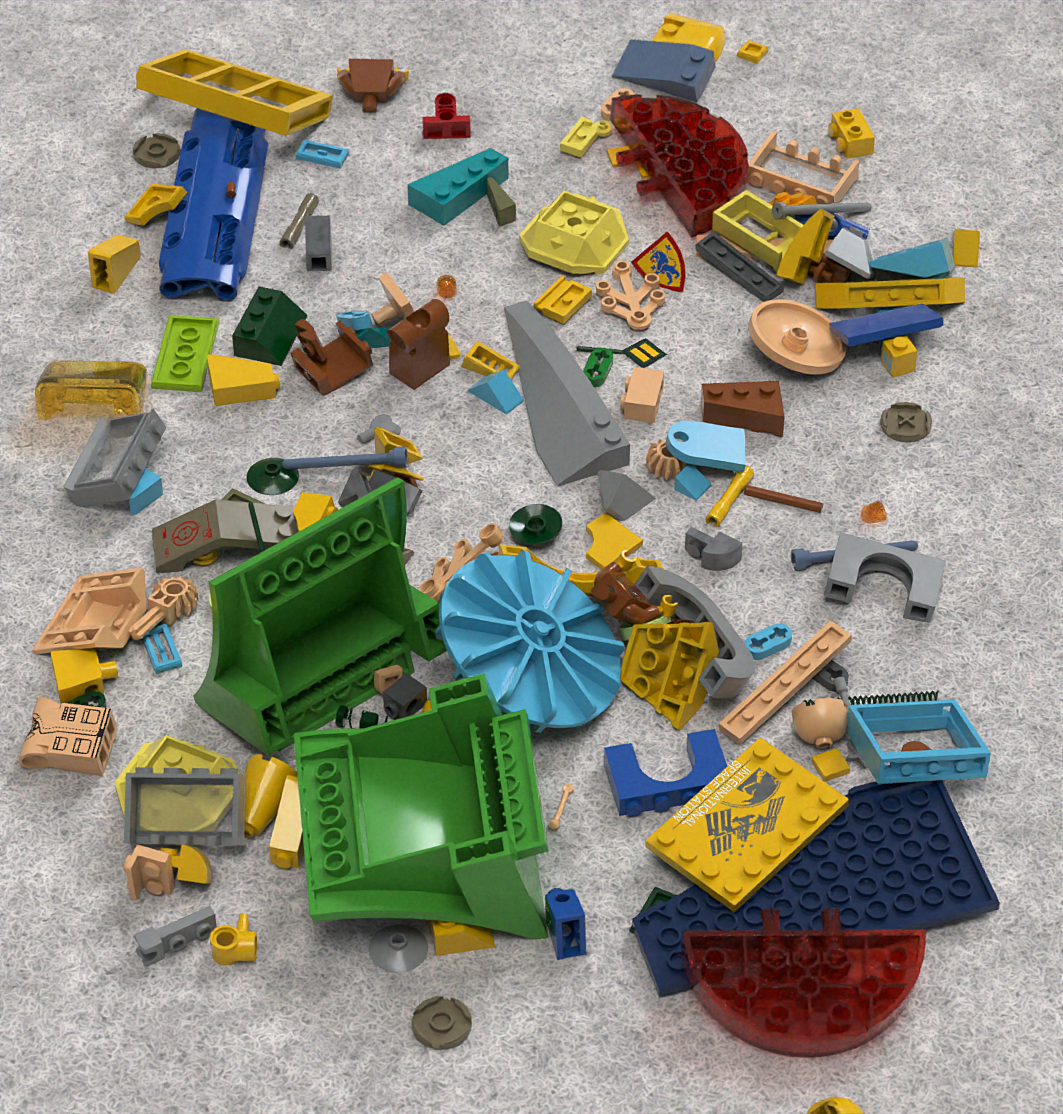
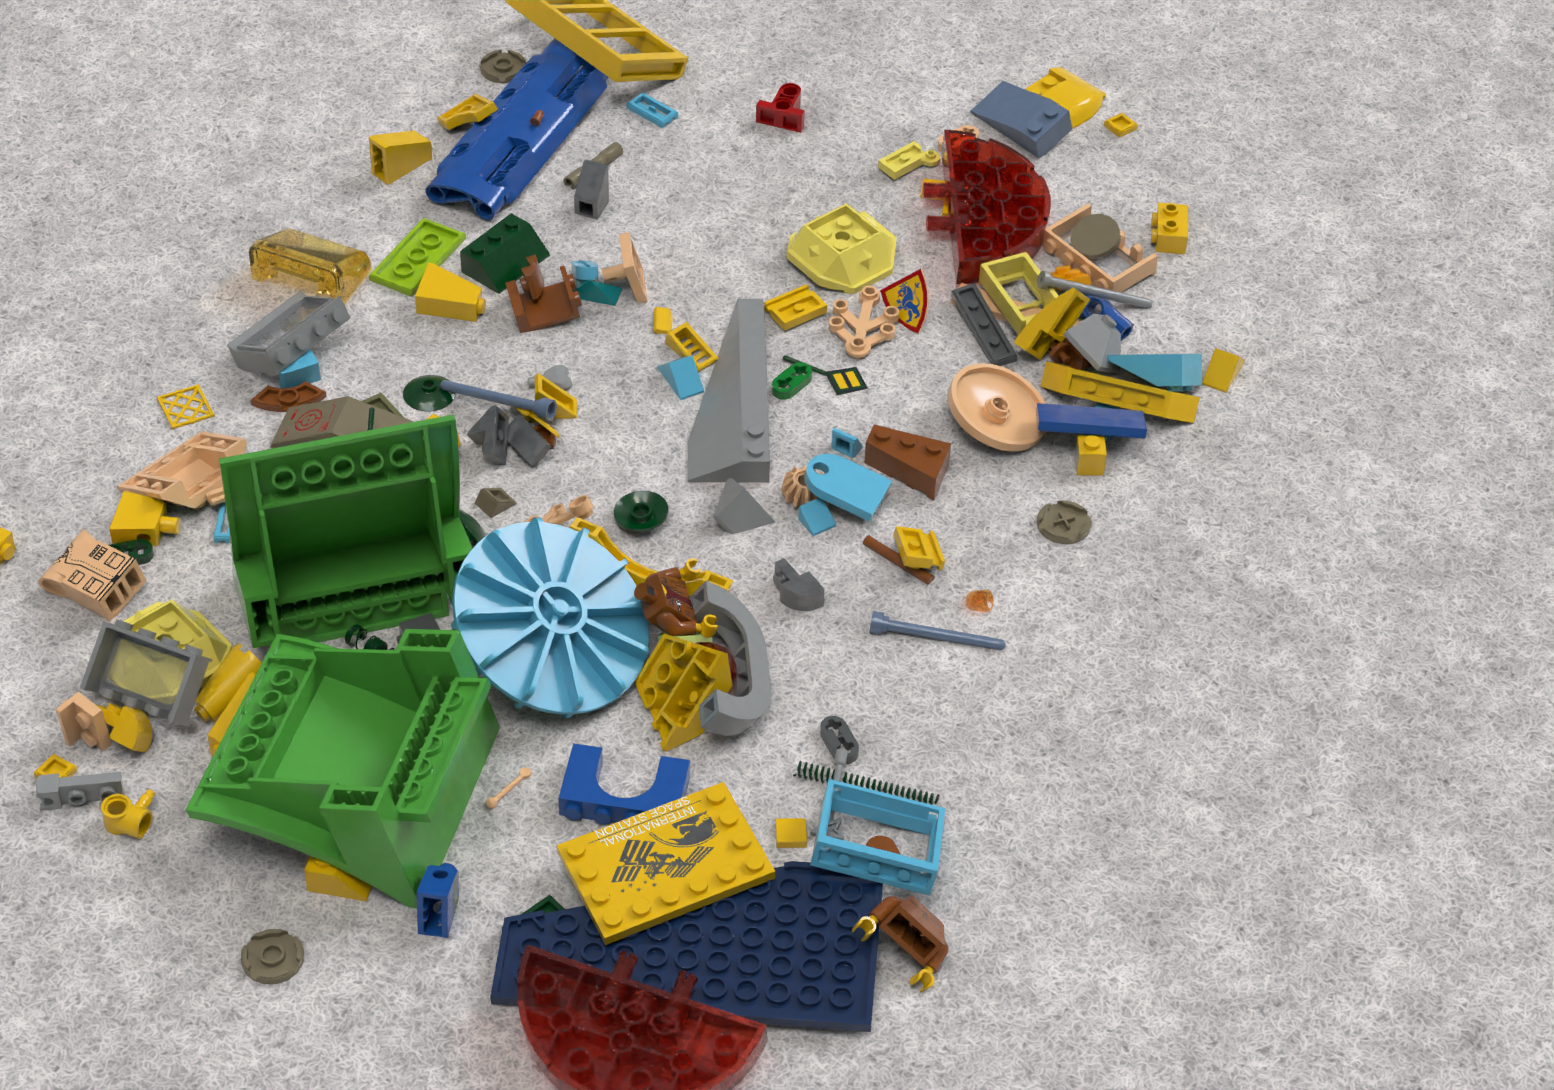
camera: 20 degrees right, 0 degrees up
(35, 546) = (179, 393): none -> yellow window
(135, 923) = (55, 765): none -> yellow tile
(143, 521) = (282, 398): none -> dark orange tile
(371, 81) = (735, 55): dark orange torso -> none
(386, 677) = (413, 609): light nougat tile -> none
(398, 957) = (278, 880): light grey dish -> none
(420, 345) = (625, 309): dark orange piece -> none
(446, 286) = (693, 264): clear orange piece -> none
(458, 186) = (758, 173): teal wedge -> none
(501, 204) = (788, 201): olive slope -> none
(609, 540) = (708, 547): yellow tile -> none
(643, 394) = (817, 419): light nougat brick -> none
(679, 409) = (845, 443): none -> medium azure slope
(723, 506) = (833, 549): yellow piece -> none
(768, 641) = (800, 693): medium azure beam -> none
(785, 682) = (788, 737): light nougat plate -> none
(795, 158) = (1095, 236): none -> dark tan tile
(798, 482) = (918, 548): none -> yellow plate
(822, 722) = (799, 787): light nougat cylinder -> none
(917, 571) = (929, 636): light grey arch -> none
(991, 811) = (914, 930): none -> dark orange torso

